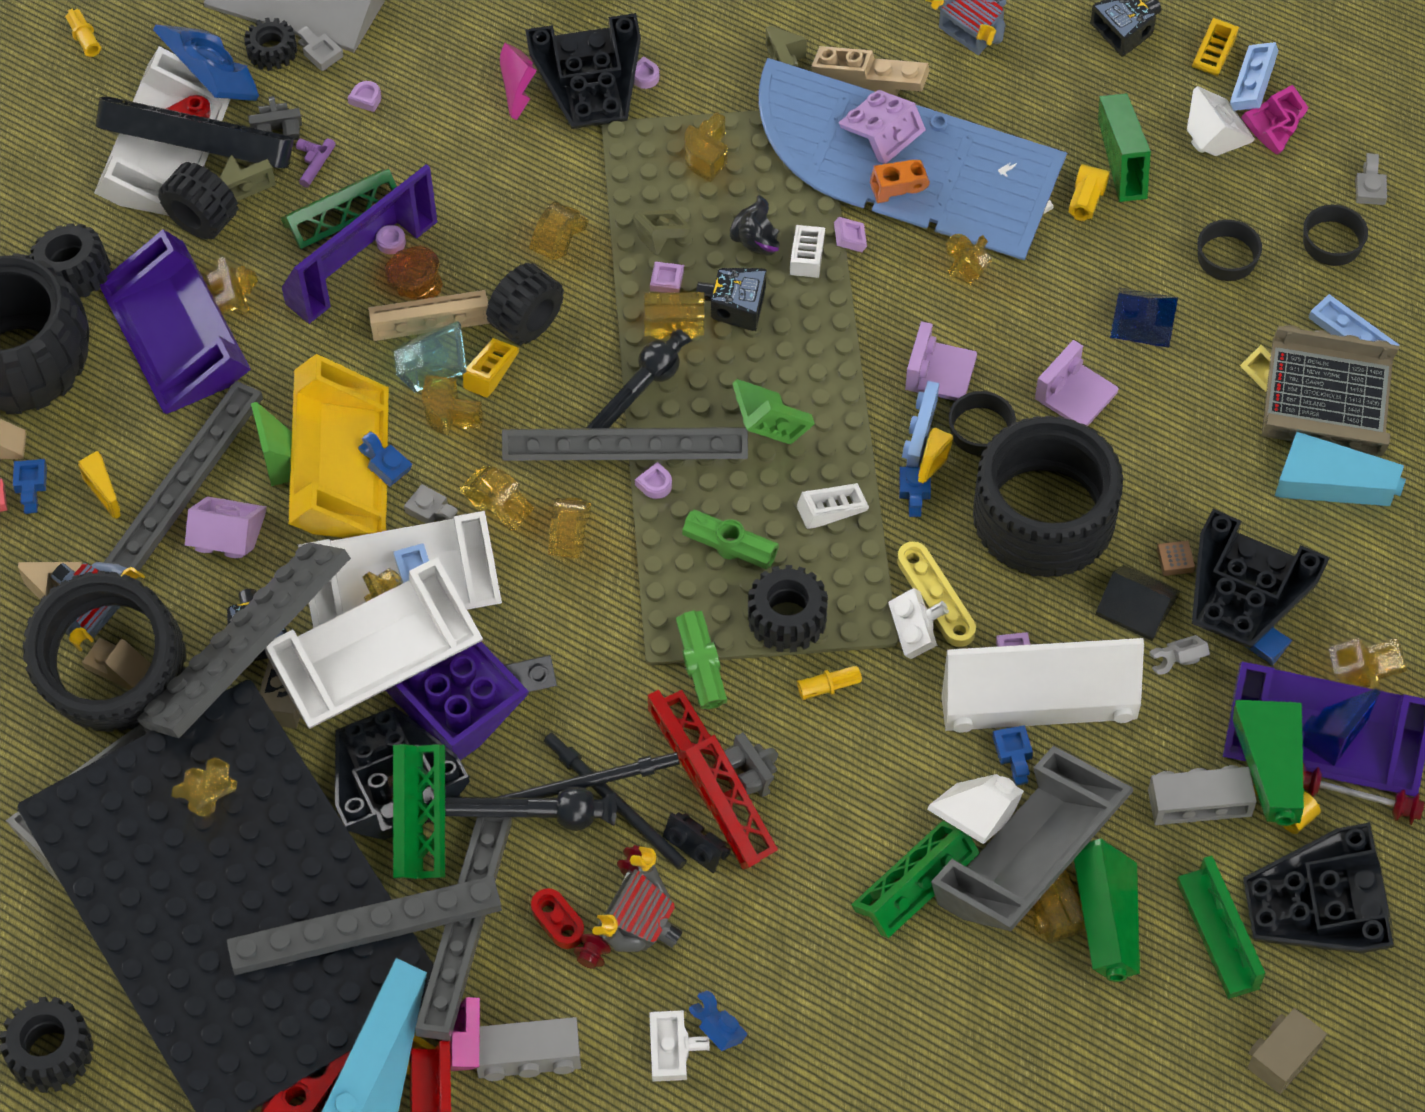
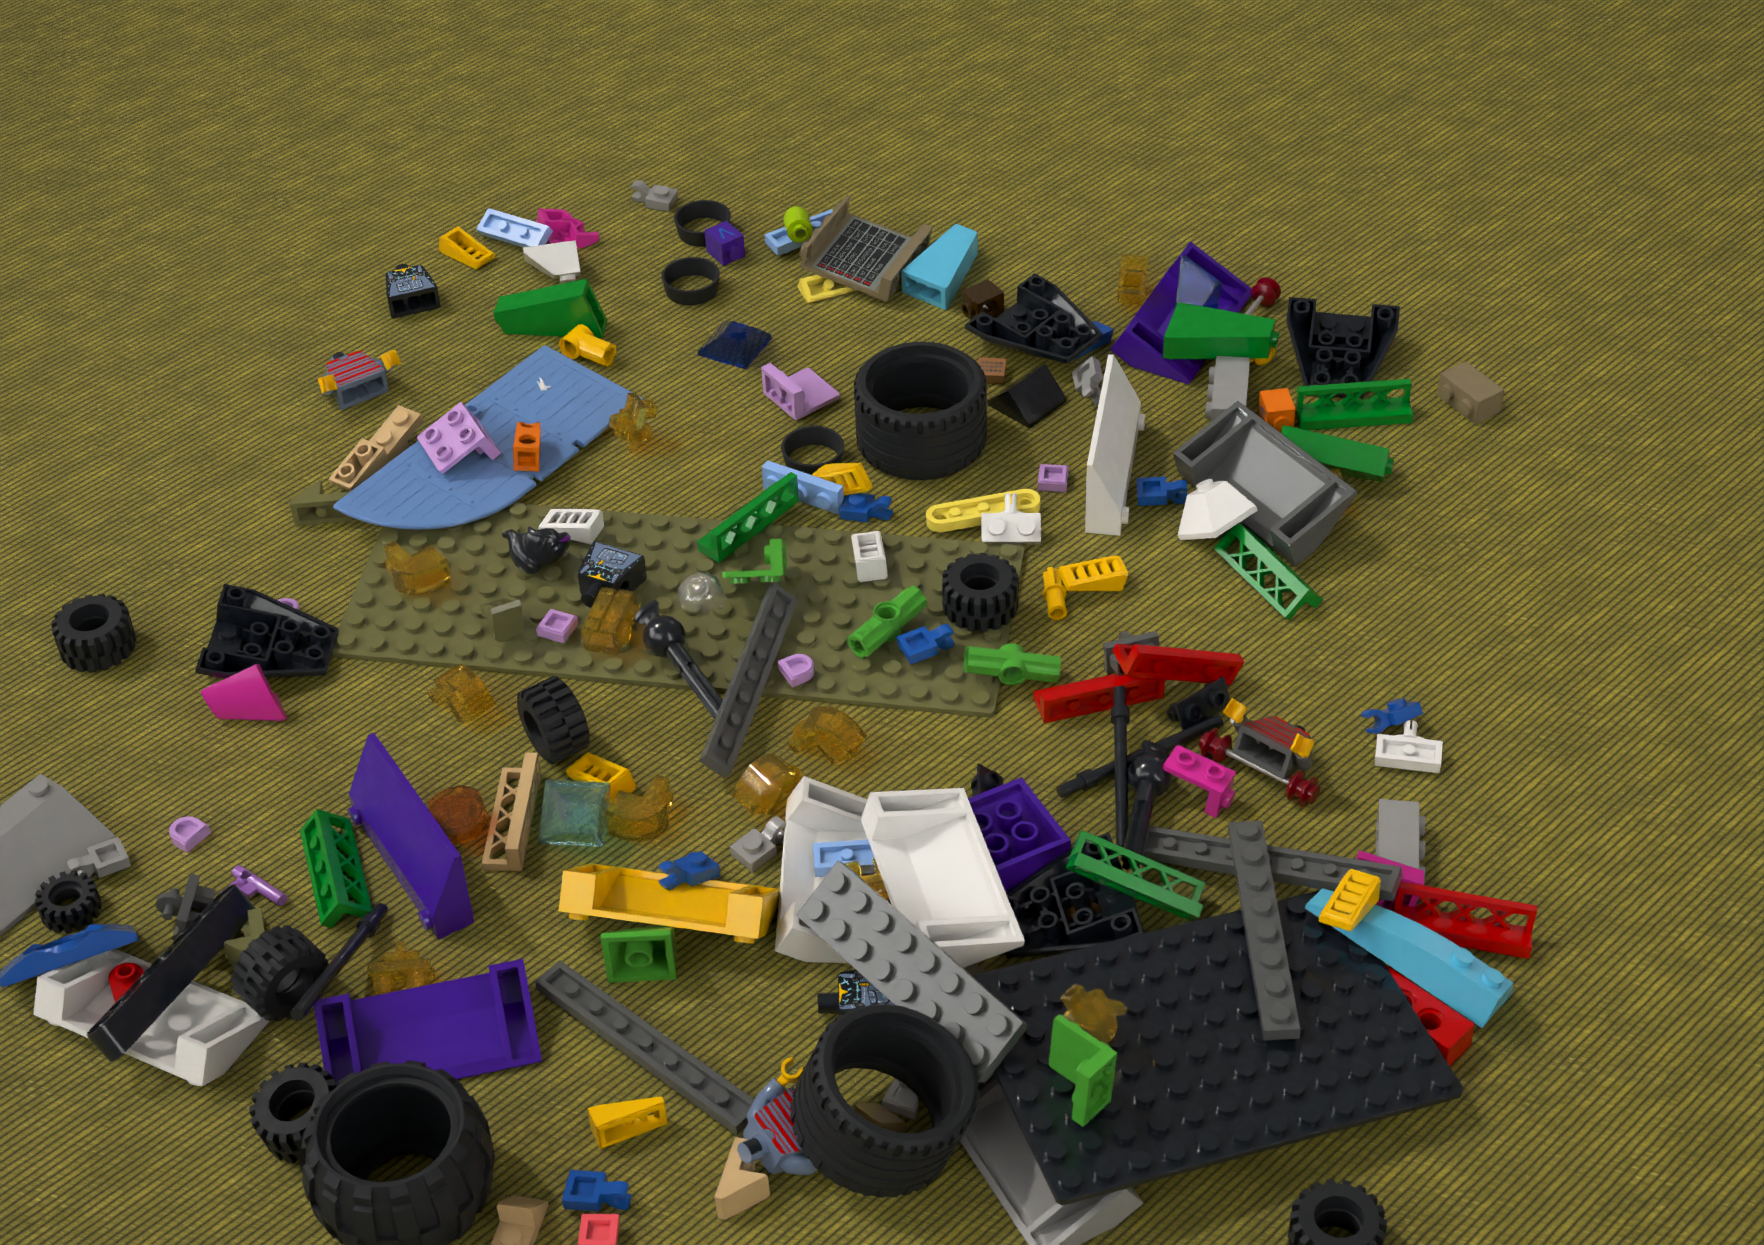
camera: 75 degrees left, 15 degrees down
(128, 799) = (1086, 1064): none -> bright green bracket
(224, 526) = (724, 1012): lavender slope -> none
(277, 247) = (366, 929): none -> black bar
(404, 983) = (1355, 896): none -> yellow slope
(558, 920) = (1262, 806): red plate -> none
(572, 851) = (1204, 774): none -> dark pink bracket
(709, 575) = (923, 644): none -> blue plate
(728, 371) = (701, 593): none -> clear hair
(850, 234) = (562, 498): lavender tile -> none
(853, 391) = (750, 519): none -> green fence
(859, 735) = (1095, 575): none -> yellow slope
(939, 364) = (736, 467): lavender bracket -> none
(1184, 847) = (1277, 408): none -> orange brick
(1283, 524) = (982, 298): none -> dark brown brick
(1302, 263) = (724, 243): none -> dark purple brick
(1344, 316) = (798, 224): none -> lime brick

